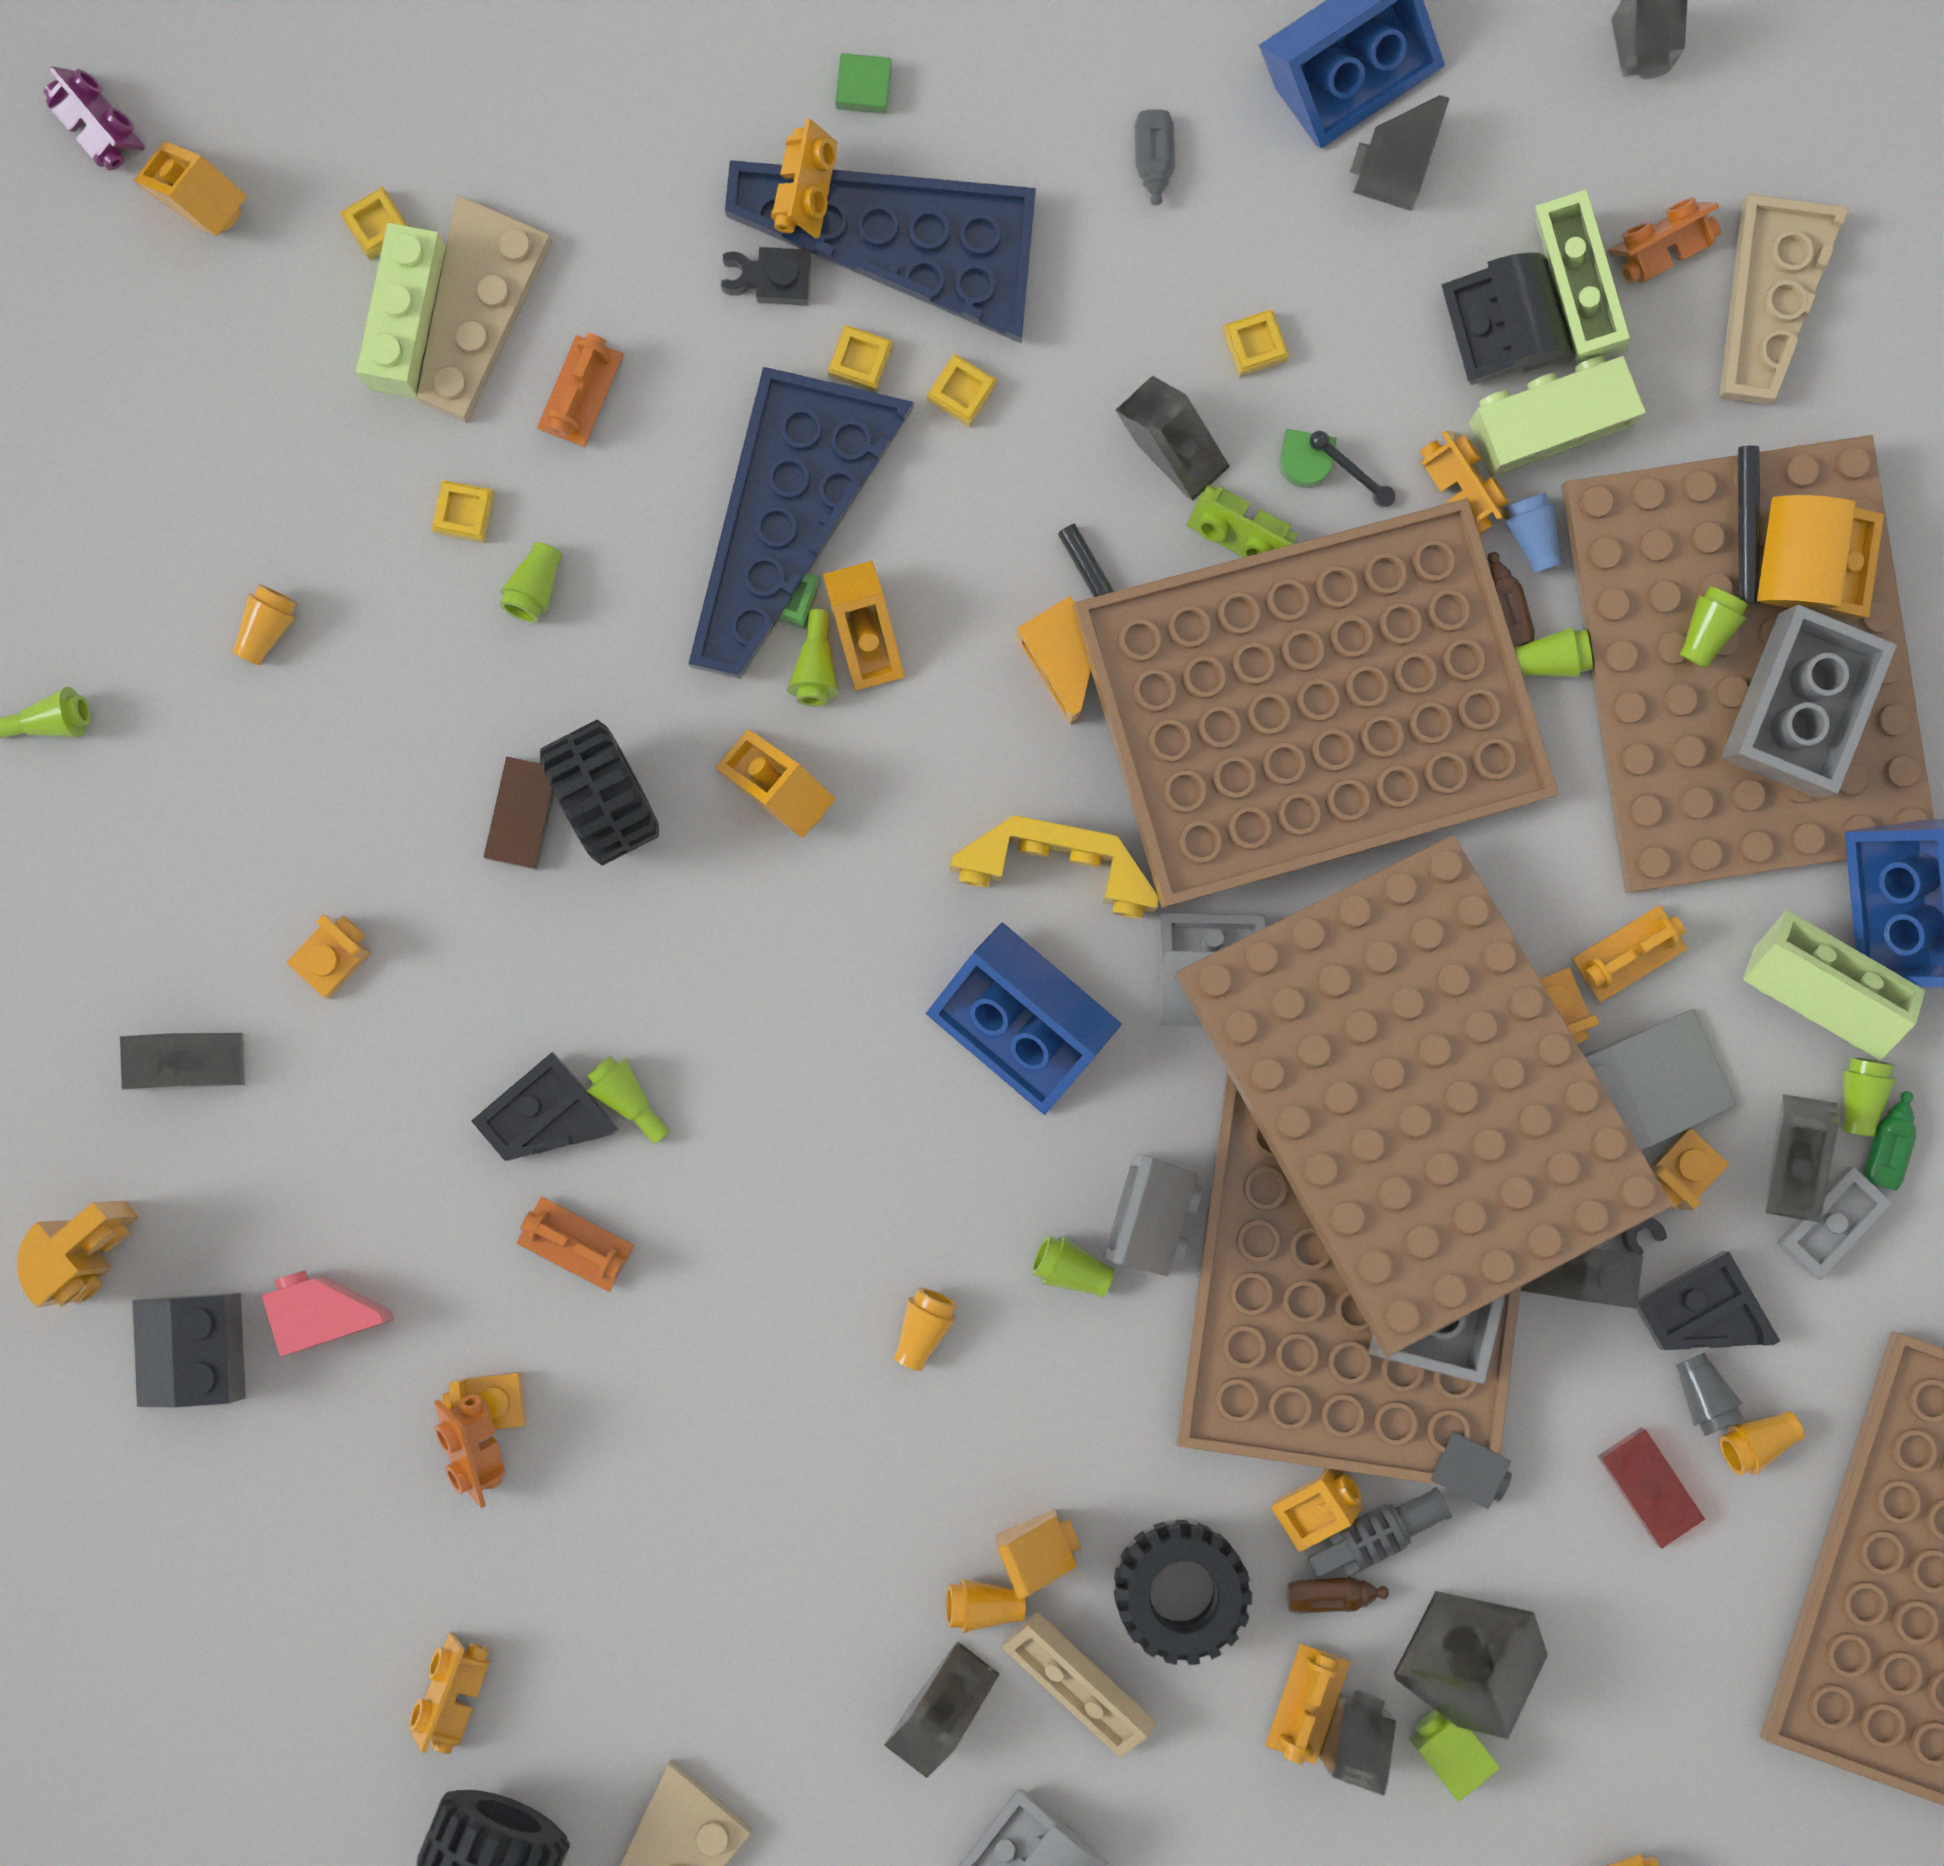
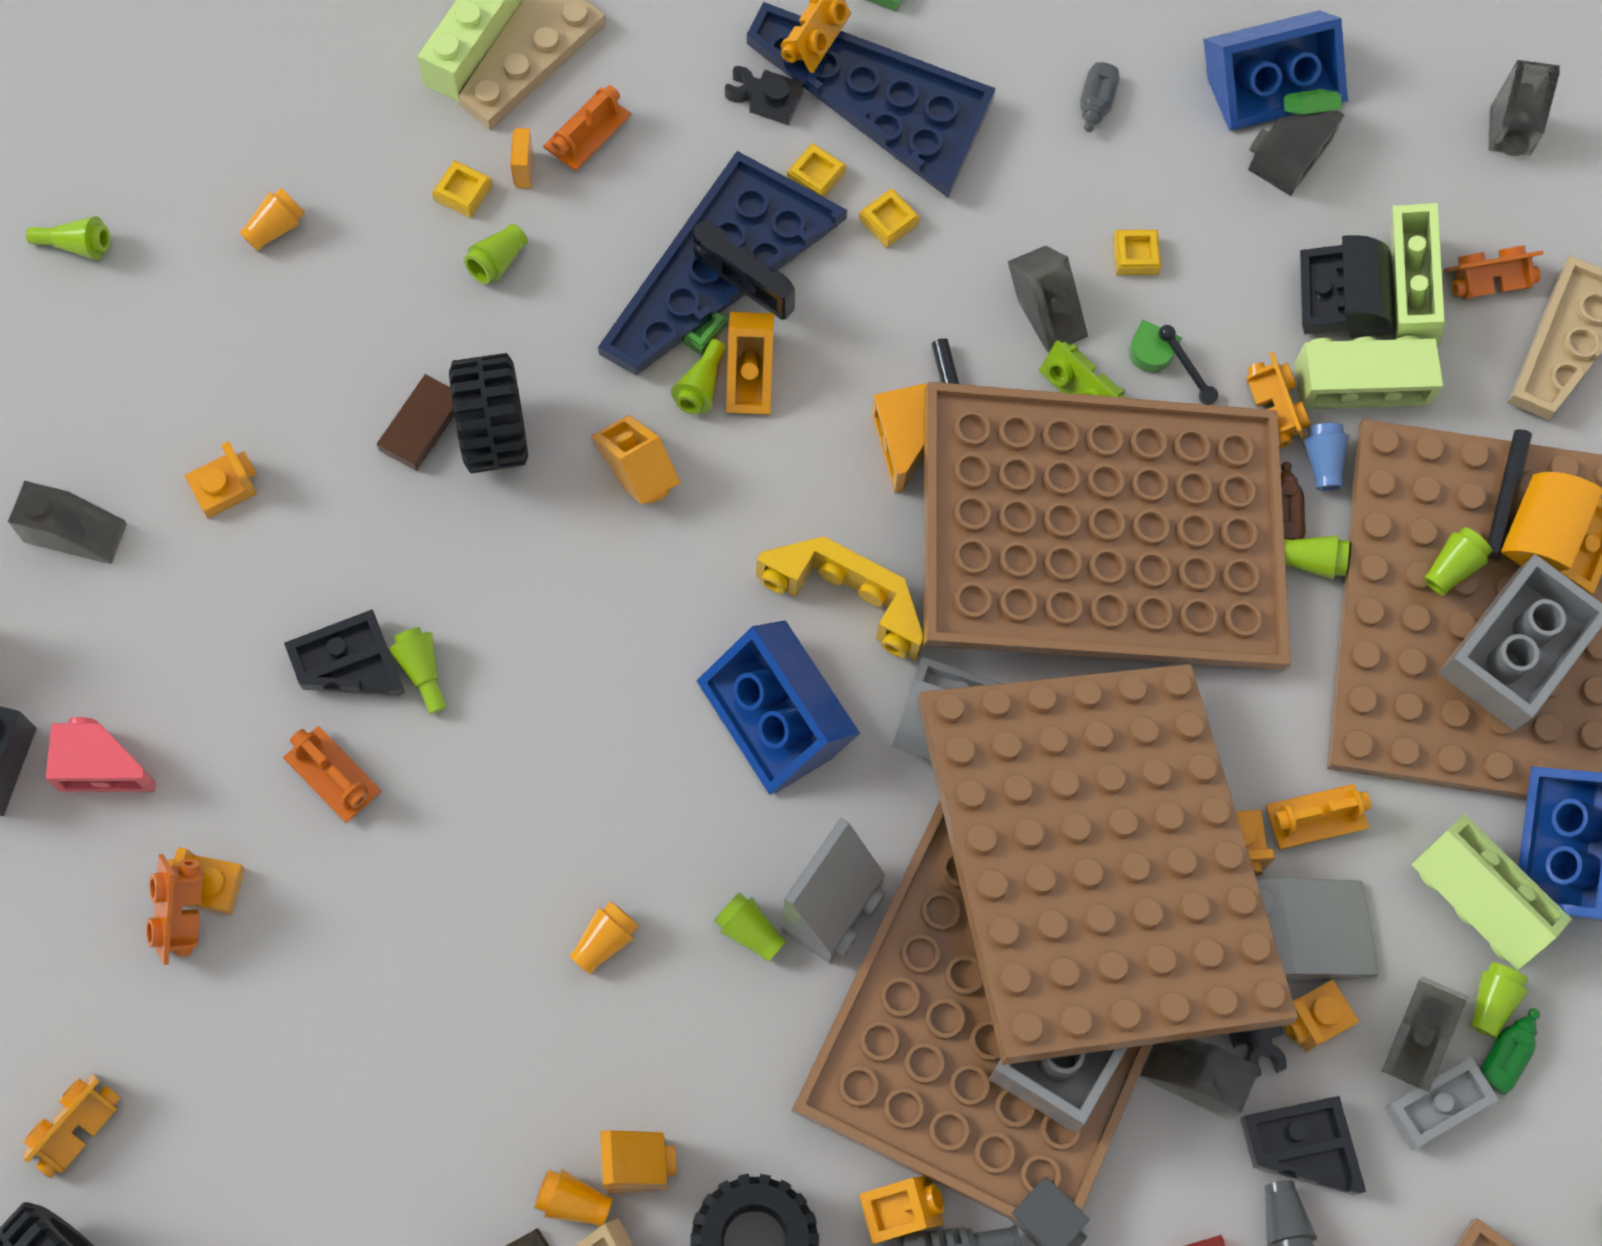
camera: 15 degrees right, 15 degrees down
(519, 454) = (521, 158): none -> light orange tile
(820, 522) = (743, 270): none -> black hinge
(1407, 89) = (1312, 101): none -> bright green tile

